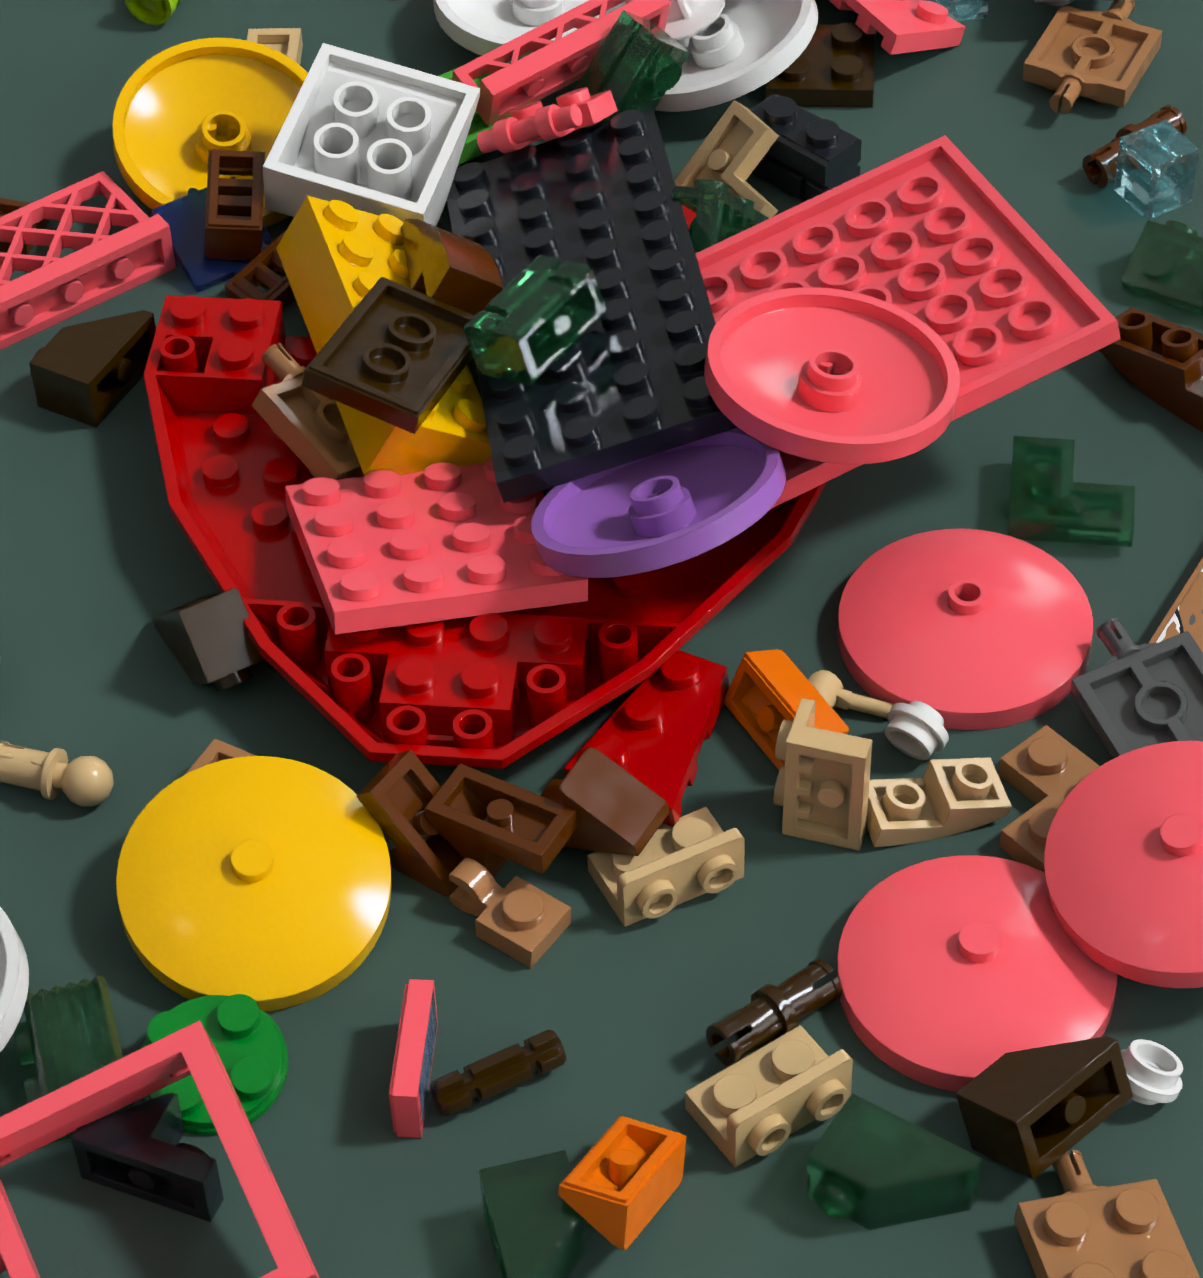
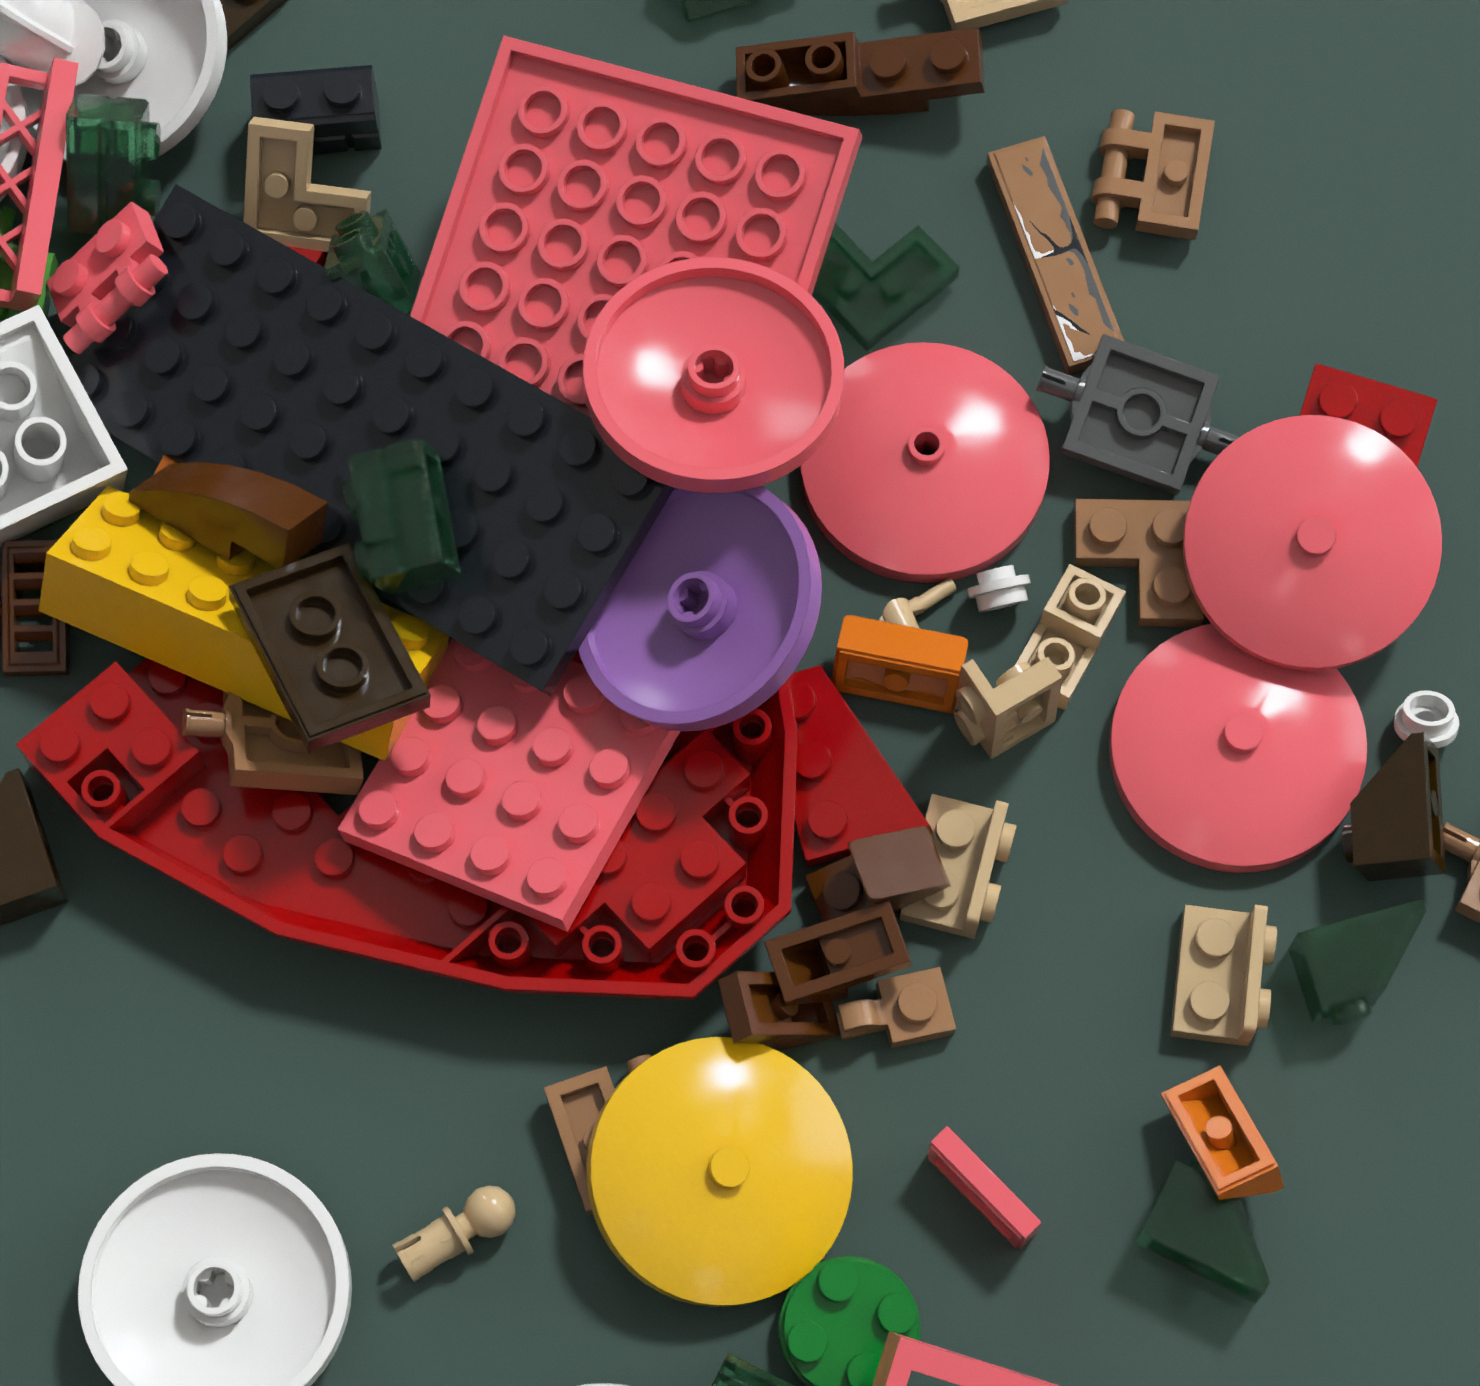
camera: 50 degrees left, 25 degrees up
(210, 639) = (421, 1006): dark brown slope -> none
(497, 1072) = (1039, 1138): dark brown axle -> none
(773, 1011) = (1158, 911): dark brown pin -> none

